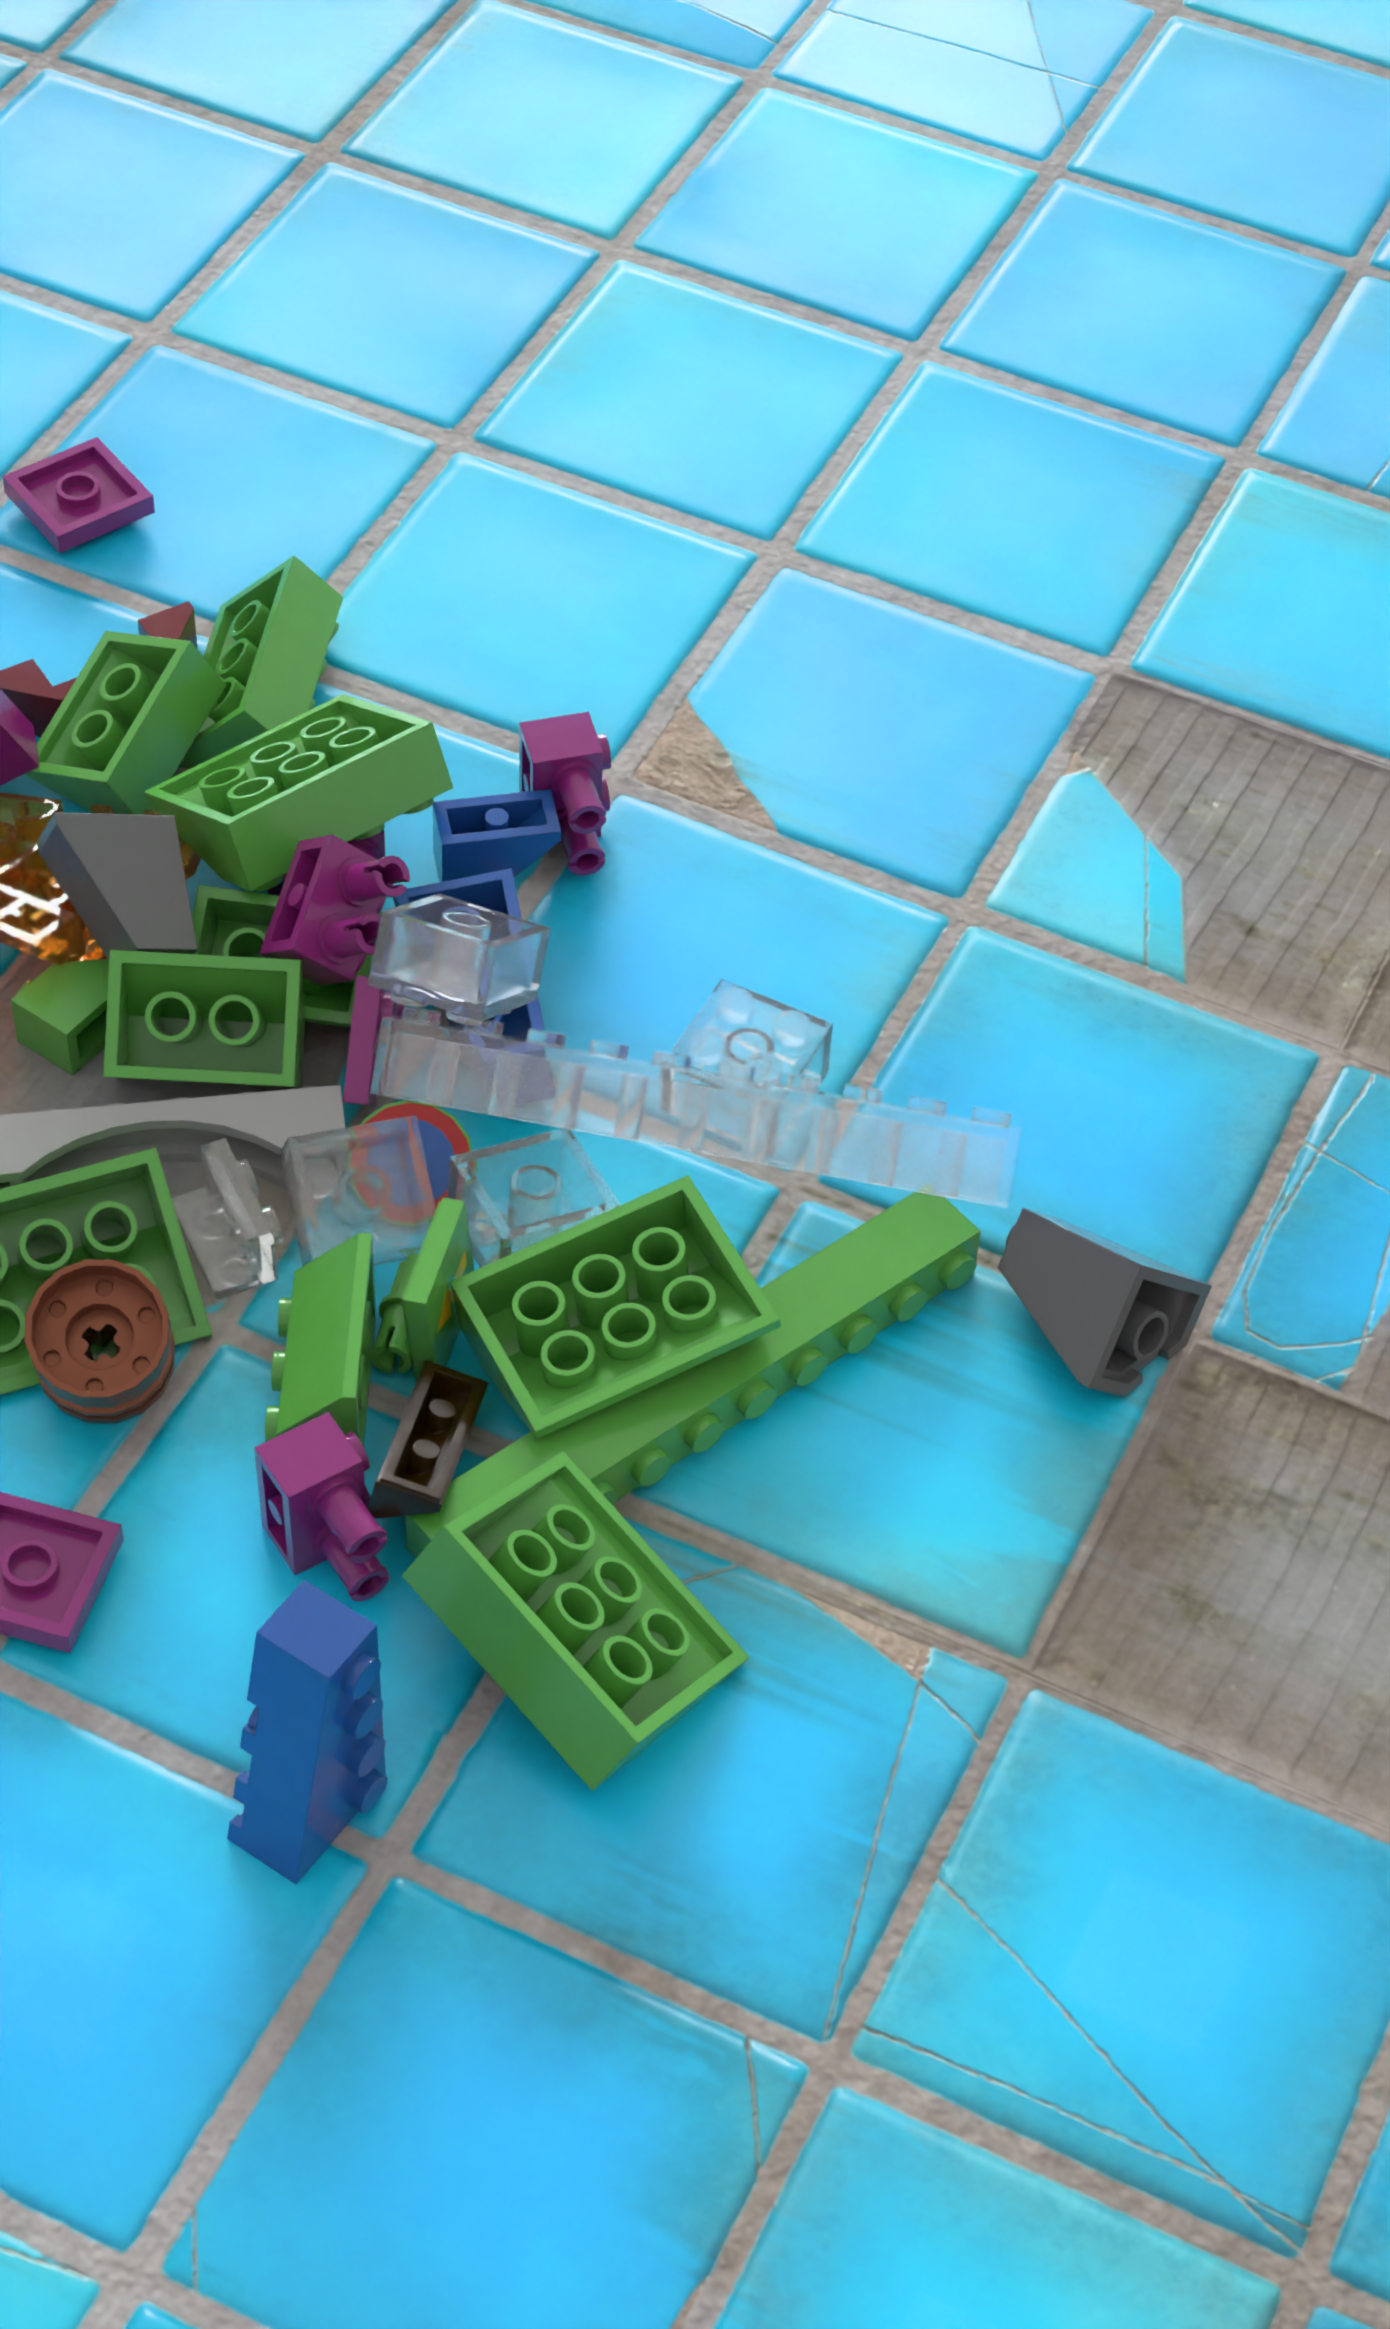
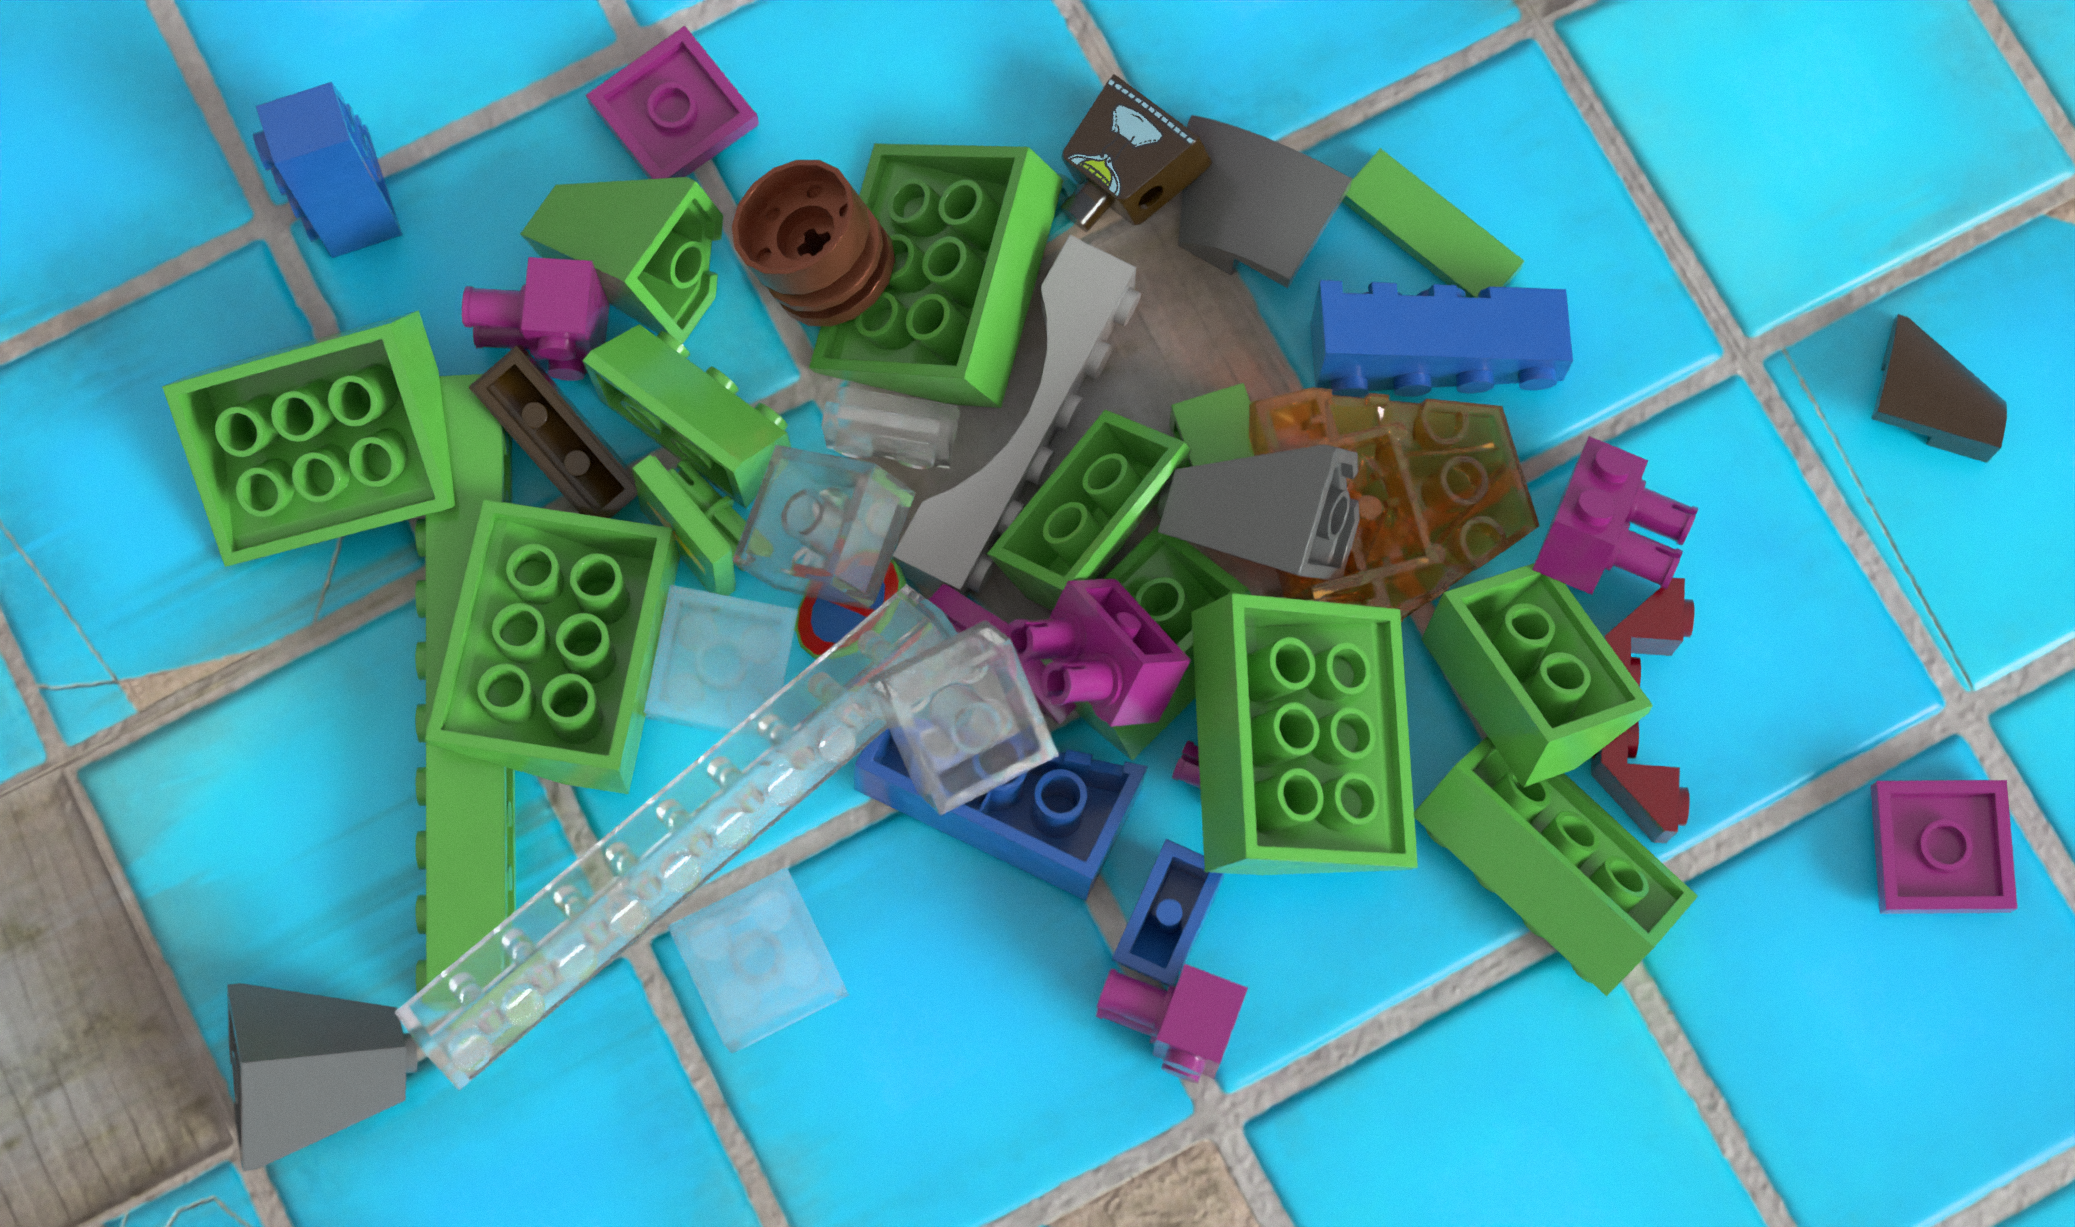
camera: 130 degrees right, 25 degrees up
(202, 1499) = (644, 241): none -> bright green slope

